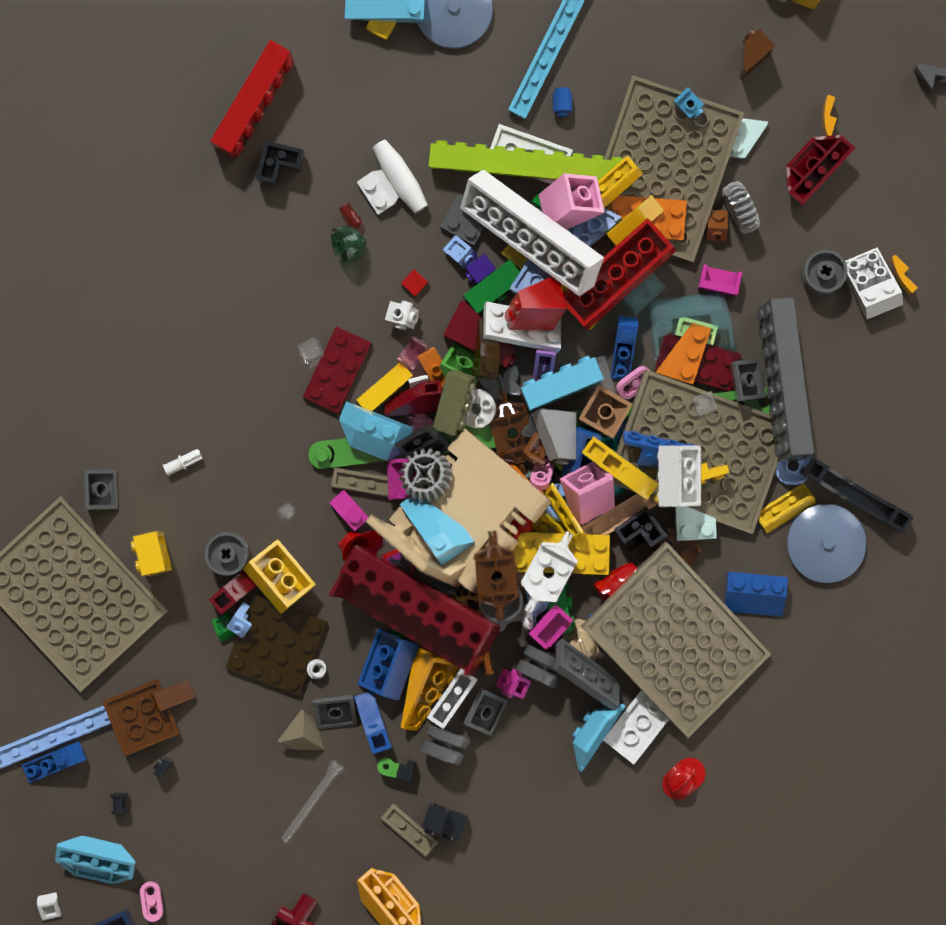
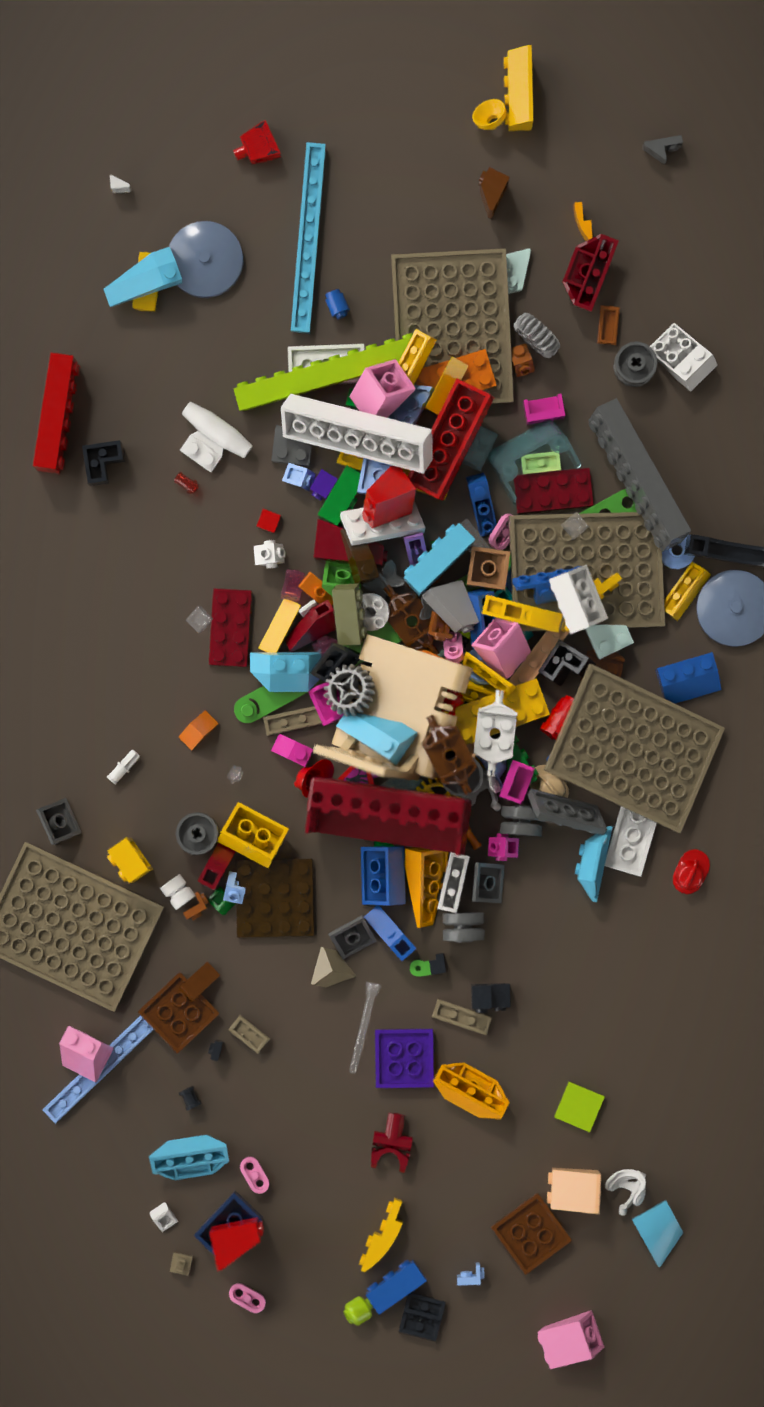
camera: 20 degrees left, 0 degrees up
(35, 720) = (84, 1053): none -> bright pink slope
(54, 762) = (115, 1084): blue slope -> none
(186, 602) = (177, 891): none -> white wheel
(195, 628) = (195, 912): none -> dark orange bracket
(200, 764) = (249, 1034): none -> dark tan plate
(267, 455) = (198, 730): none -> orange slope
(322, 669) = (325, 905): white plate -> none
(338, 847) = (404, 1058): none -> dark purple plate
(348, 243) = (194, 509): clear green cylinder -> none
(681, 103) = (445, 262): dark azure brick -> none
(686, 355) = (541, 488): orange wing -> none
(747, 380) = (604, 489): dark grey slope -> none
(813, 224) = (608, 325): none -> dark orange tile
(899, 269) = (701, 335): light orange slope -> none

